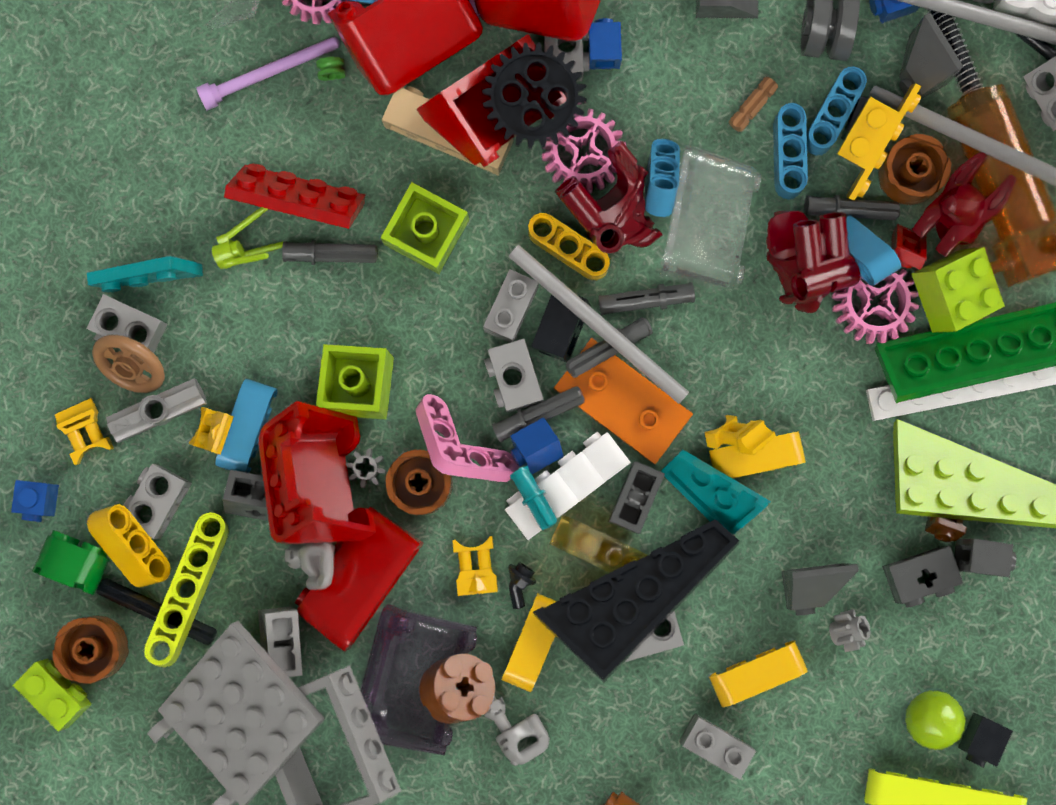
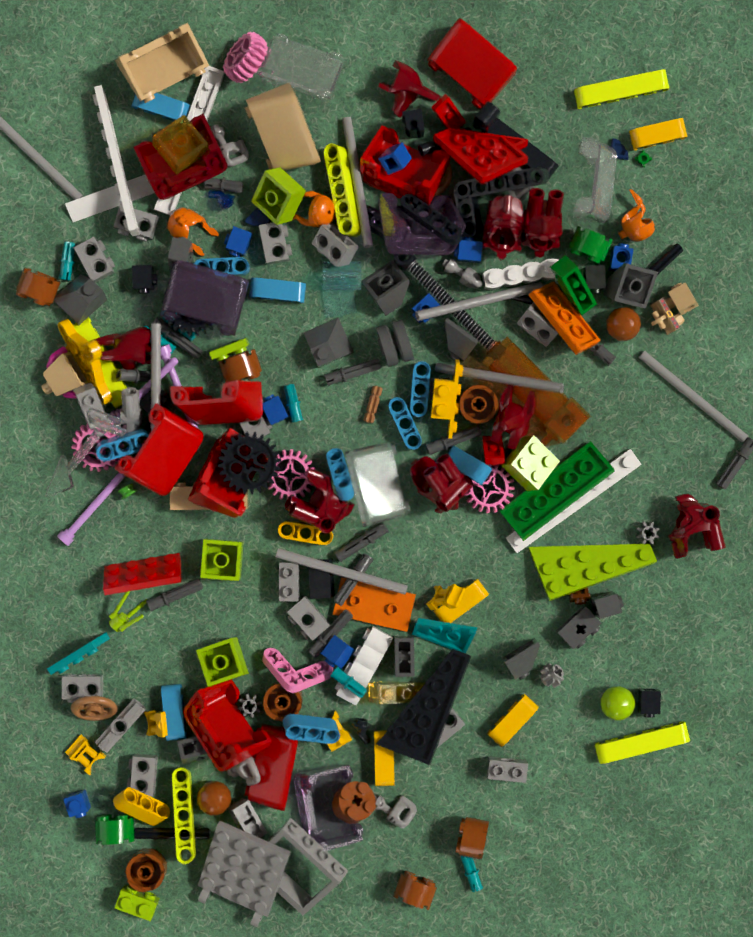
camera: 25 degrees left, 5 degrees up
(245, 584) = (214, 798): none -> dark orange piece
(436, 529) = (311, 728): none -> dark azure beam
(635, 50) = (293, 403): none -> teal axle
(745, 43) = (353, 371): none -> dark grey axle

